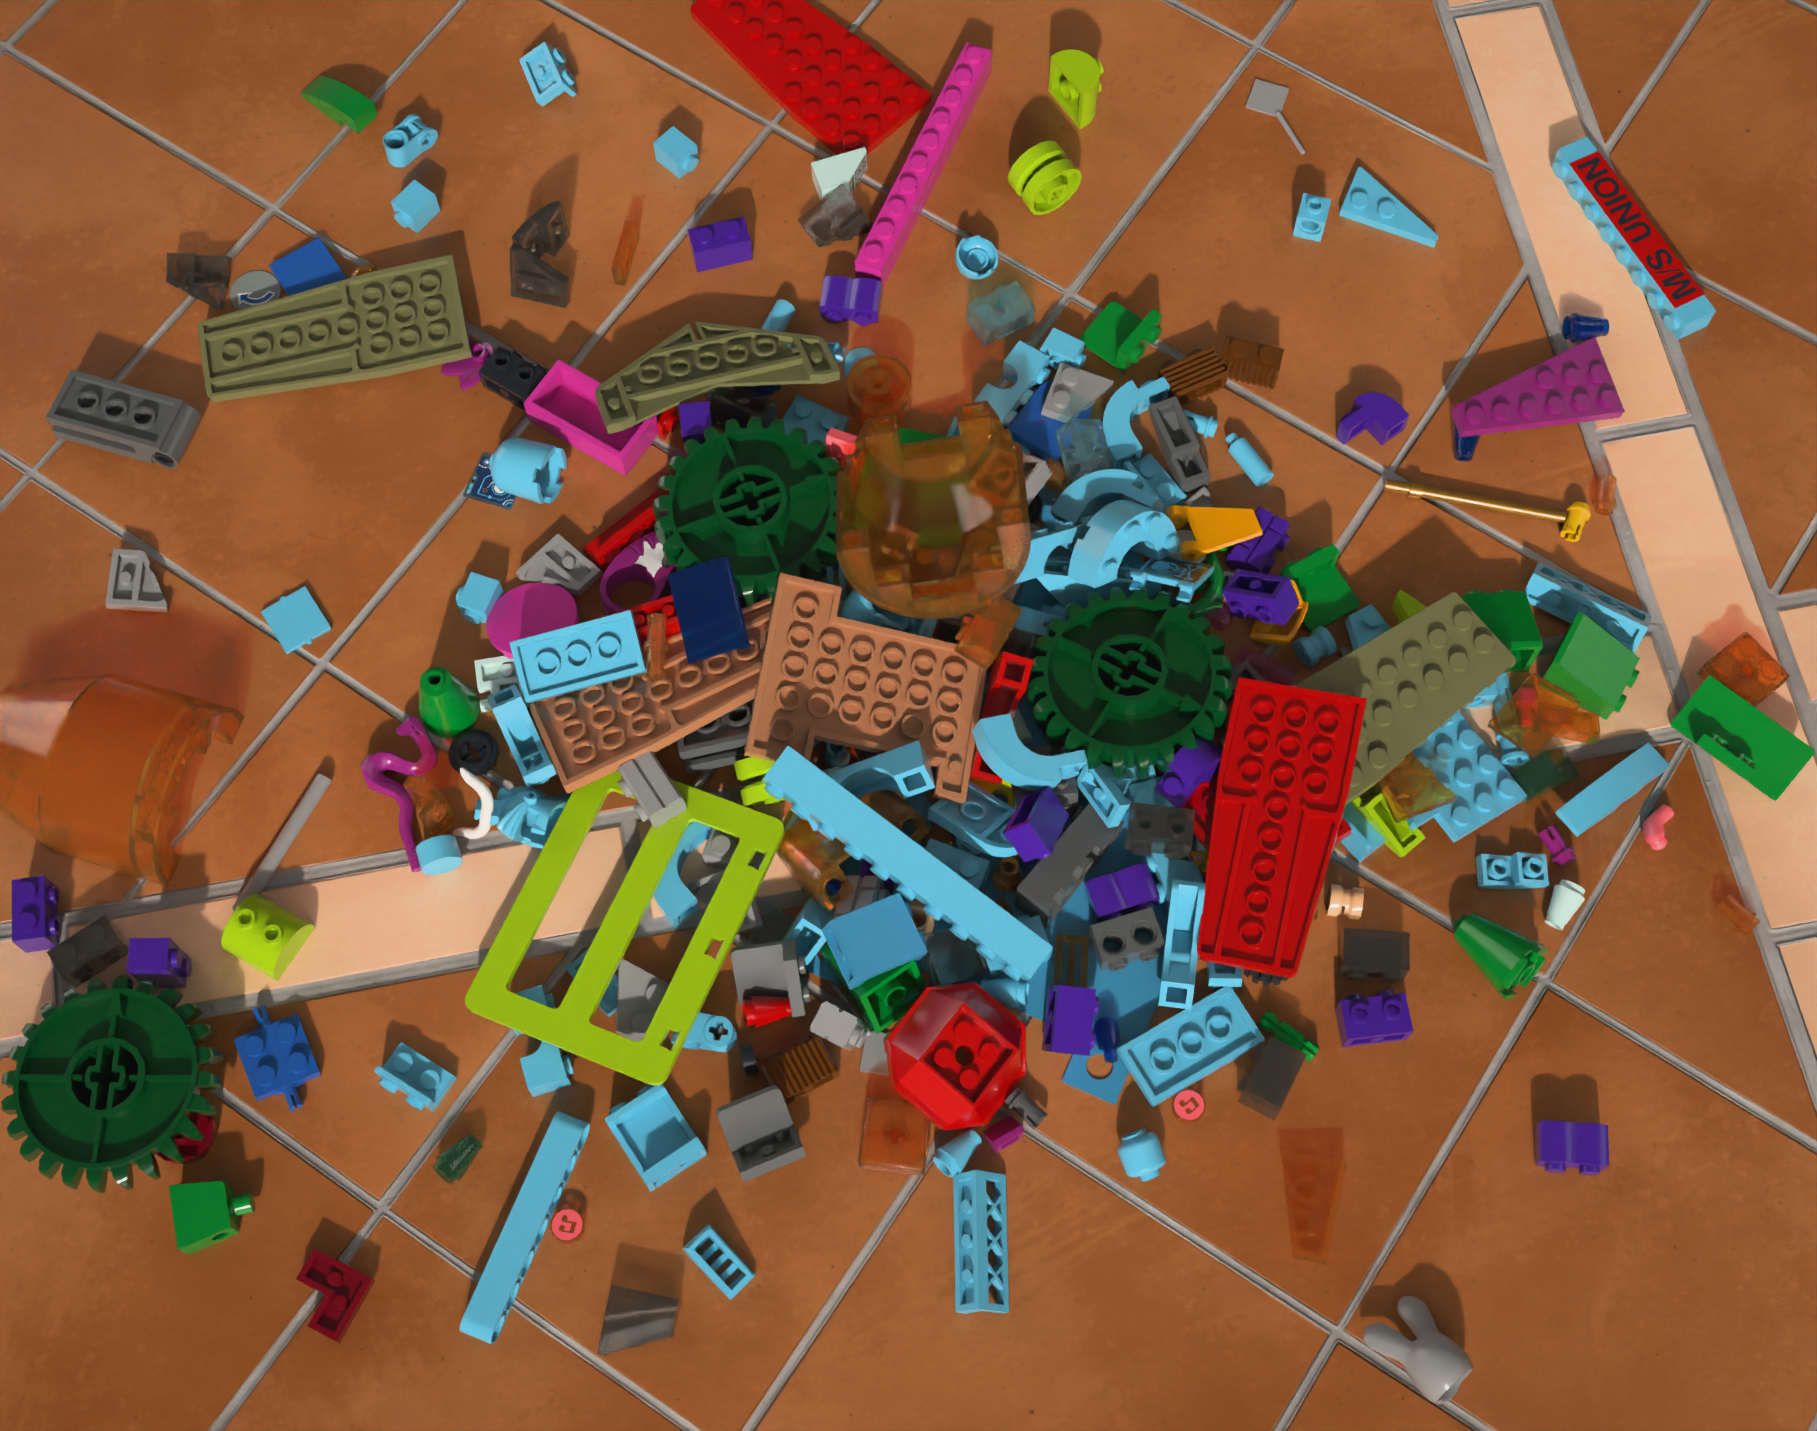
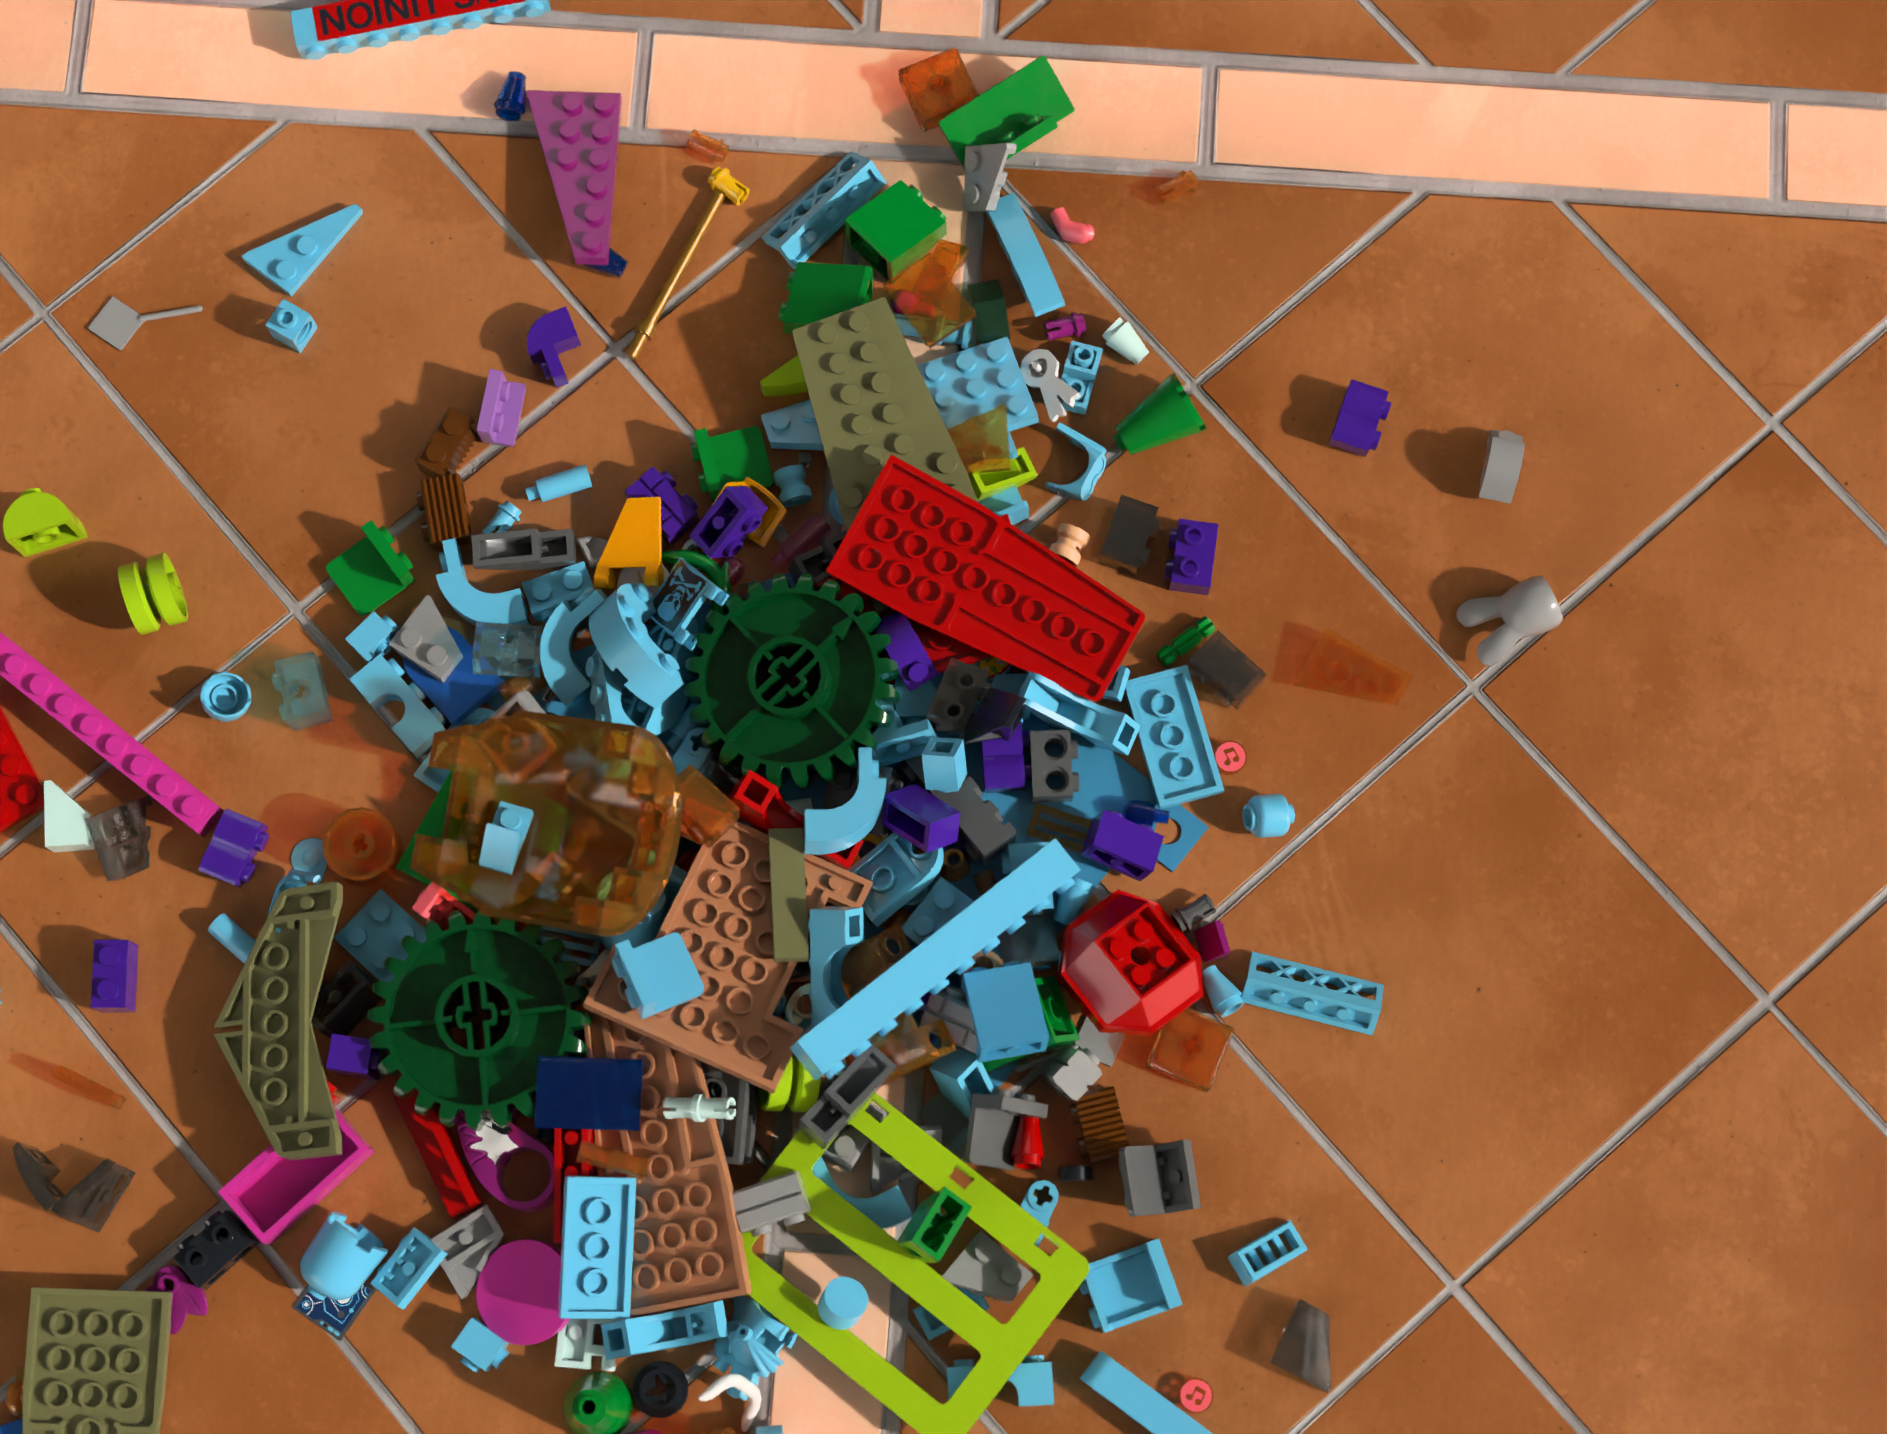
camera: 75 degrees left, 10 degrees up
(530, 522) = (408, 1268): none -> medium azure bracket
(577, 876) = (842, 1303): none -> medium azure piece
(660, 929) = (929, 1230): none -> green torso
(716, 698) = (699, 1108): none -> light aqua pin
(762, 825) = (846, 1096): none -> dark grey slope
(821, 623) = (657, 974): none -> medium azure bracket
(916, 490) = (505, 838): none -> medium azure slope
(927, 724) = (788, 895): none -> olive tile
(1091, 828) = (944, 764): none -> medium azure brick
(1150, 866) = (995, 717): none -> black slope
(1297, 391) = (500, 410): none -> medium lavender bracket
(1431, 907) = (1085, 485): none -> medium azure helmet
(1502, 834) = (1041, 371): none -> white piece
(1575, 1300) = (1501, 466): none -> light grey brick
(1673, 730) = (985, 175): none -> light grey wing

